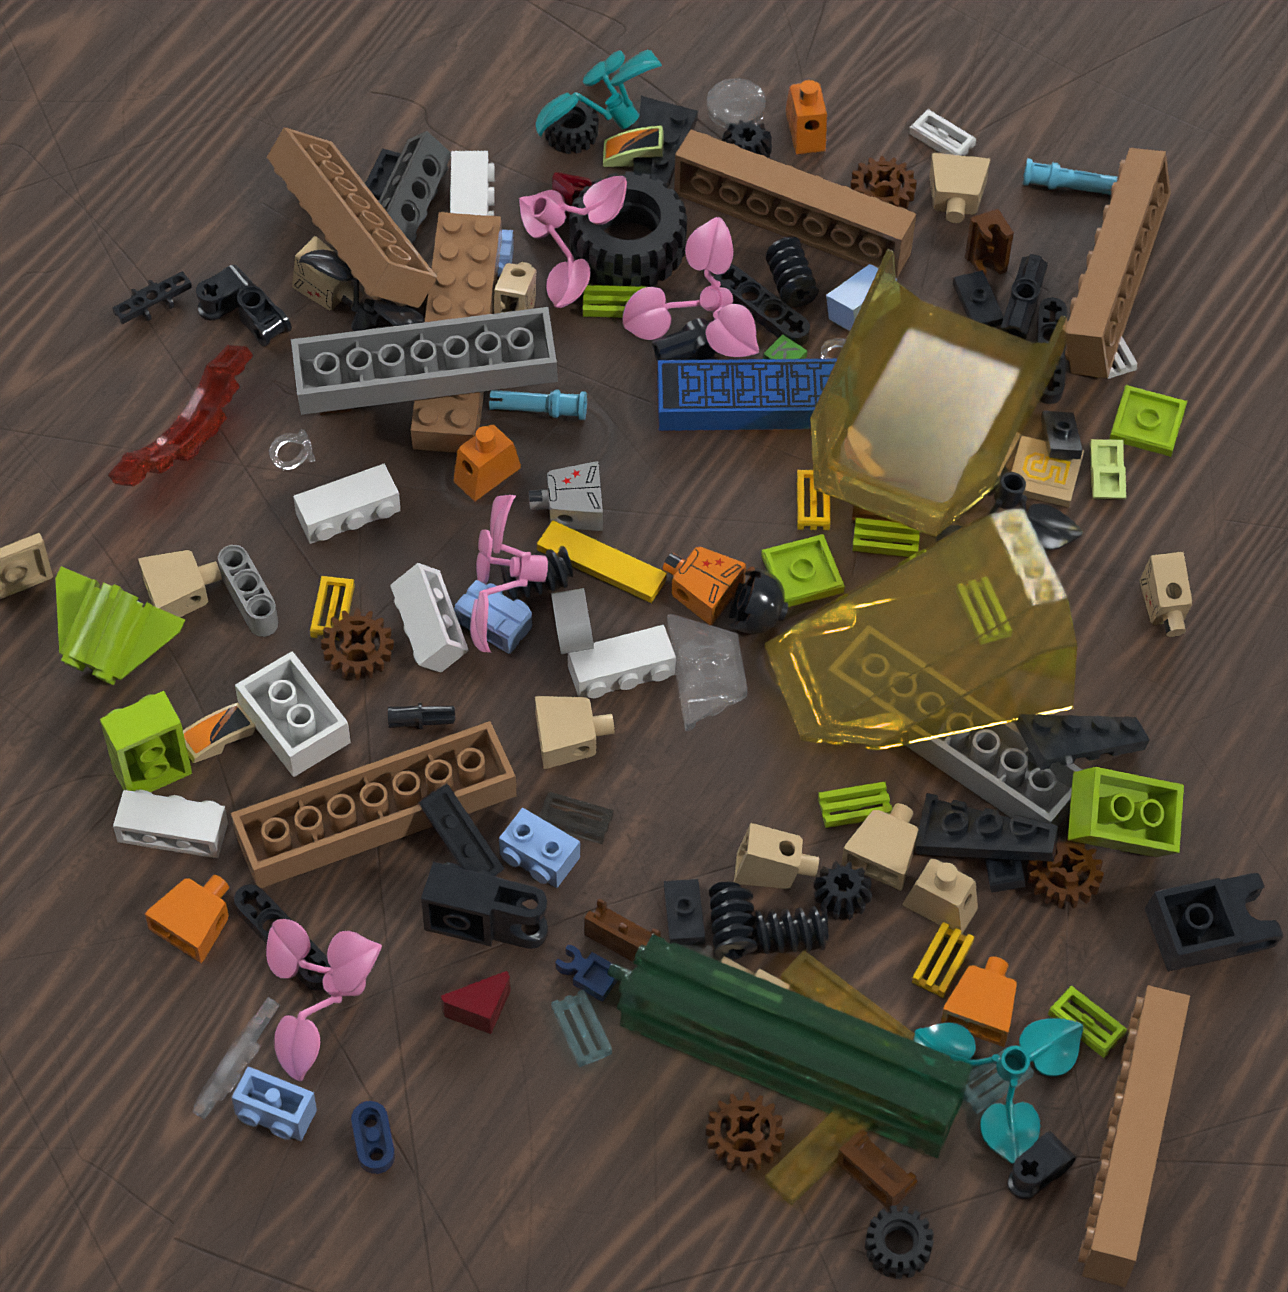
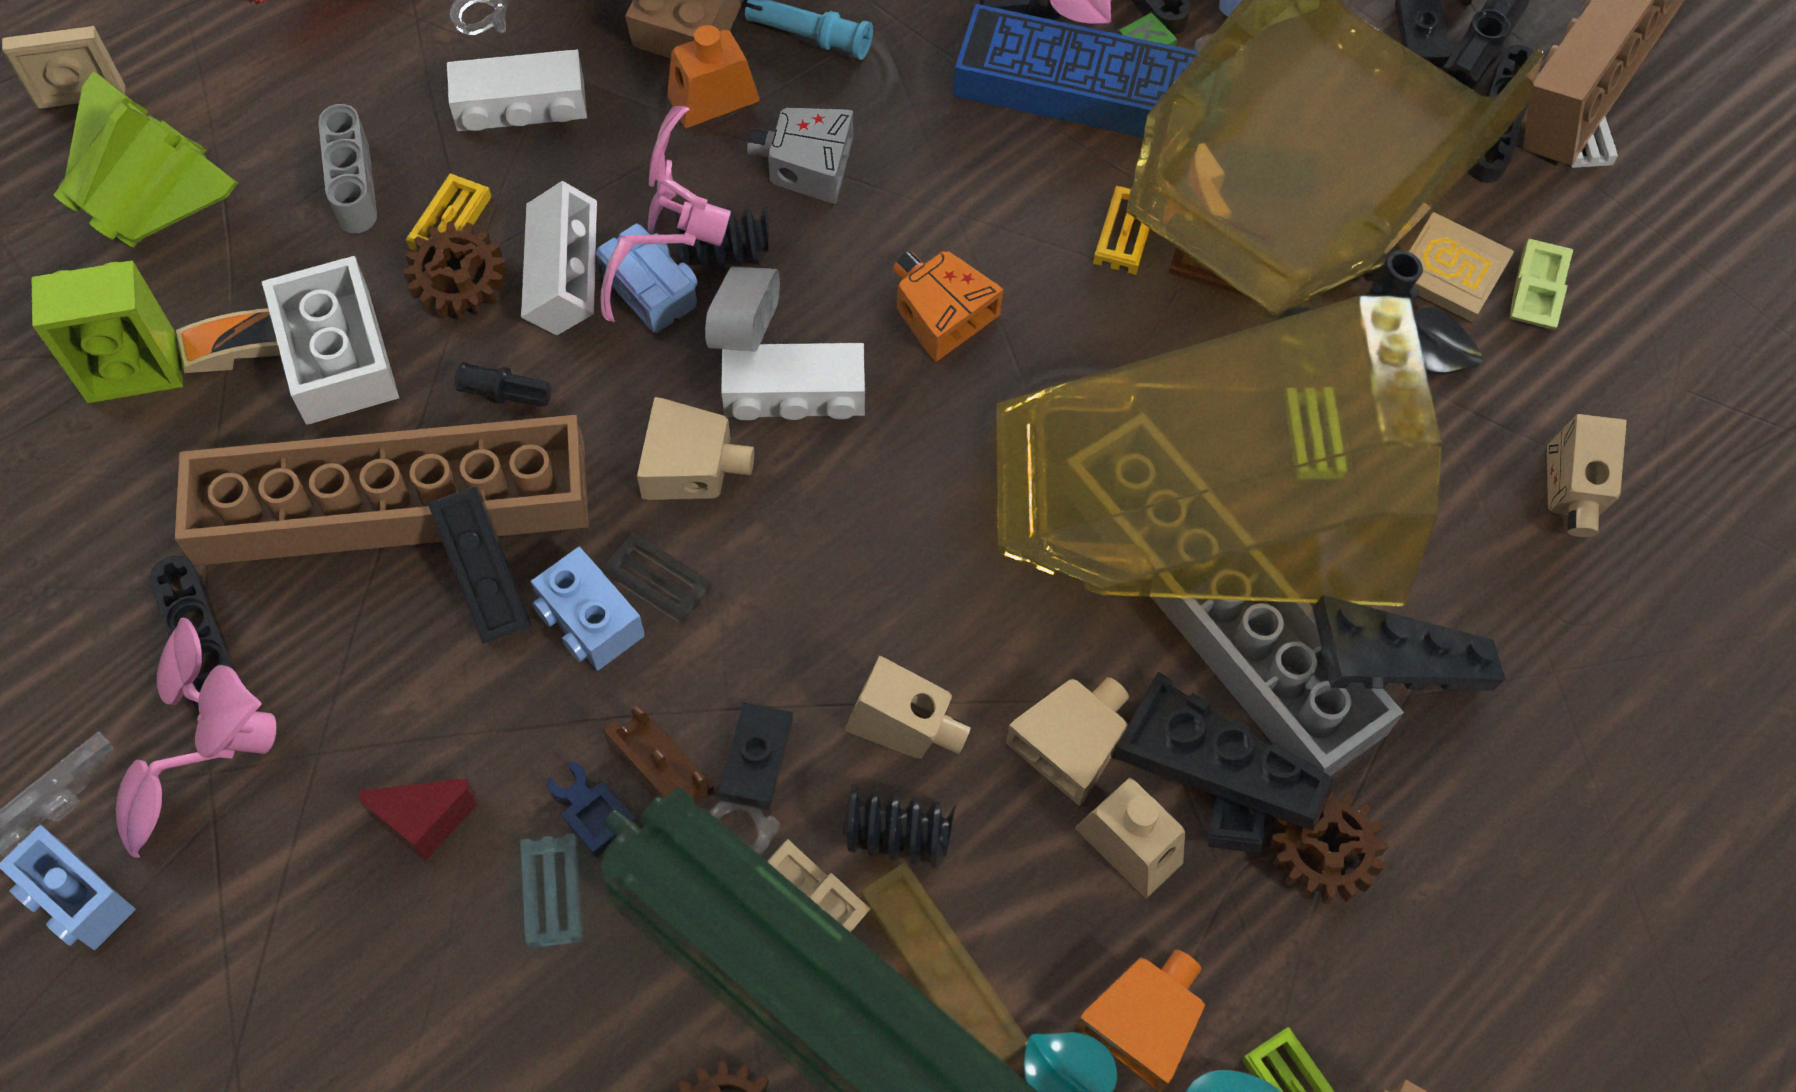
camera: 15 degrees right, 5 degrees up
(170, 823) = (112, 444): white brick -> none
(177, 581) = (261, 138): tan torso -> none
(191, 916) = (85, 580): orange torso -> none
(373, 1139) = (189, 977): dark blue plate -> none
(481, 907) = (465, 673): black brick -> none
(604, 561) = (820, 243): yellow tile -> none
(706, 668) = (907, 418): clear wing -> none
(732, 920) = (815, 789): black piece -> none
(758, 602) = (1005, 347): black cylinder -> none
(804, 569) = (1081, 319): lime tile -> none
(844, 878) = (1001, 802): black gear -> none
(853, 799) = (1050, 644): lime tile -> none
(887, 533) = (1210, 296): lime tile -> none
(954, 937) = (1136, 898): yellow tile -> none
(1061, 435) = (1488, 223): black plate -> none
(1126, 812) = (1443, 783): lime brick -> none
(1148, 420) = (1614, 233): lime tile -> none
(1209, 921) = (1544, 981): black brick -> none

